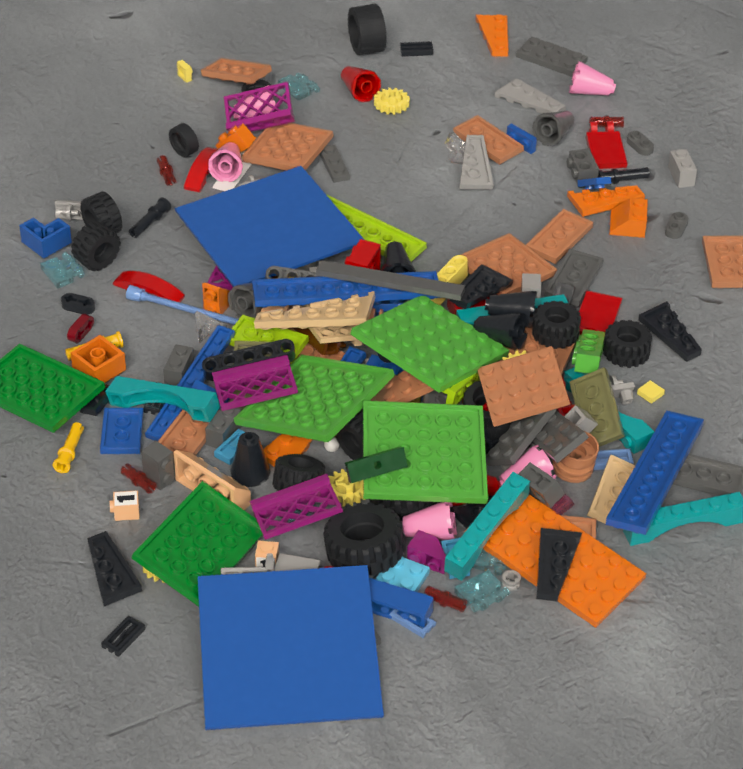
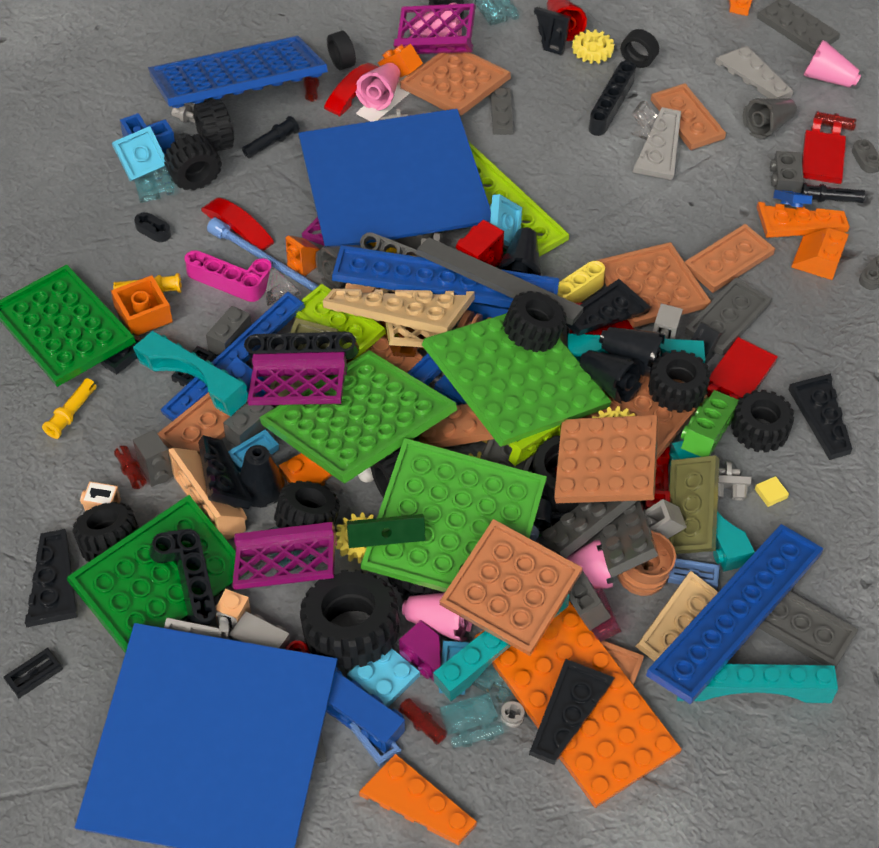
camera: 15 degrees right, 10 degrees up
(48, 247) = (139, 153): none -> medium azure plate
(80, 328) = (141, 259): dark red beam -> none
(103, 170) = (236, 71): none -> blue plate
(121, 431) = (137, 399): blue tile -> none
(140, 521) = (103, 528): none -> black tyre
(159, 327) = (234, 280): none -> dark pink beam
(221, 463) = (221, 475): none -> black wing
(226, 530) = (188, 578): none -> black beam
(355, 92) = (553, 29): none -> black wing
(374, 233) = (505, 216): none -> medium azure plate
(422, 137) = (612, 98): none -> black beam
(426, 103) = (645, 39): none -> black tyre
(432, 301) = (534, 321): none -> black tyre
(463, 651) = (414, 797): none -> orange wing
(485, 482) = (511, 587): none -> nougat plate
(522, 137) = (727, 122): blue plate -> none

